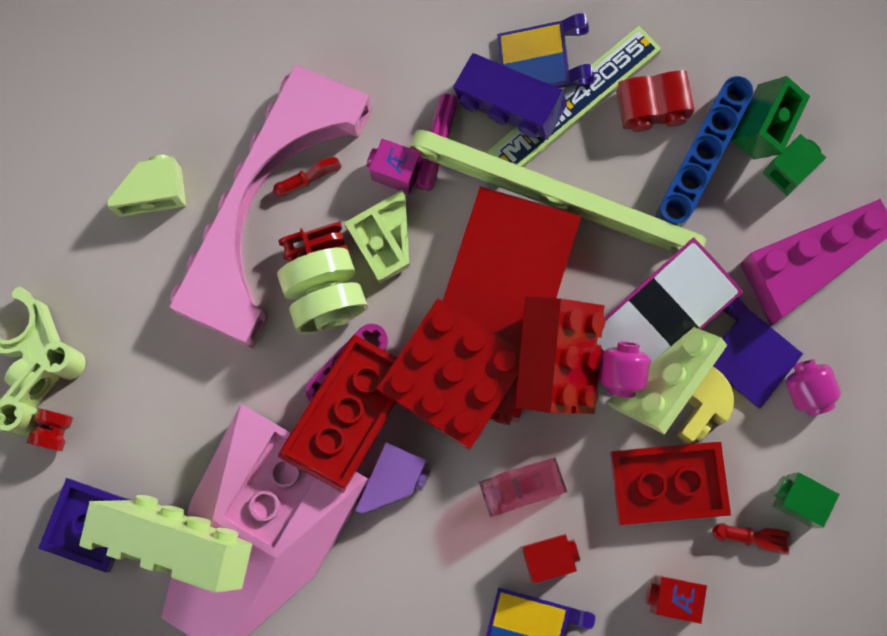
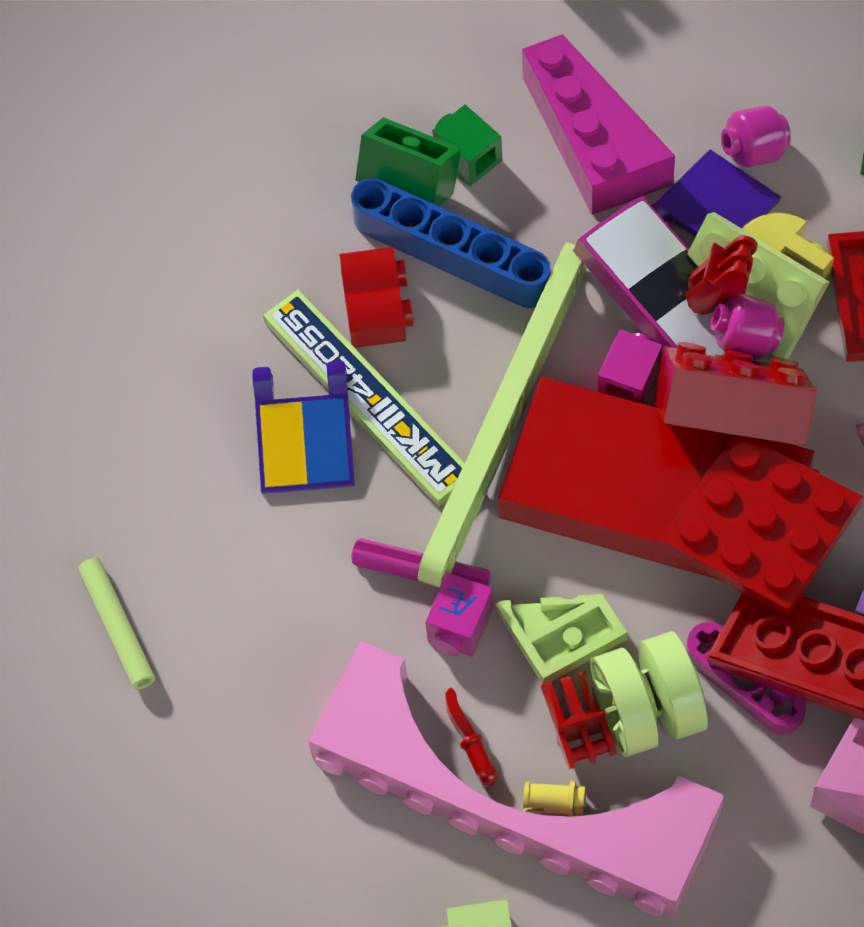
camera: 90 degrees left, 15 degrees down
(258, 233) = (554, 799): none -> light yellow pin
(510, 96) = (367, 464): dark purple brick -> none
(597, 285) = (630, 367): none -> dark pink brick
(664, 347) = (721, 275): none -> red arm

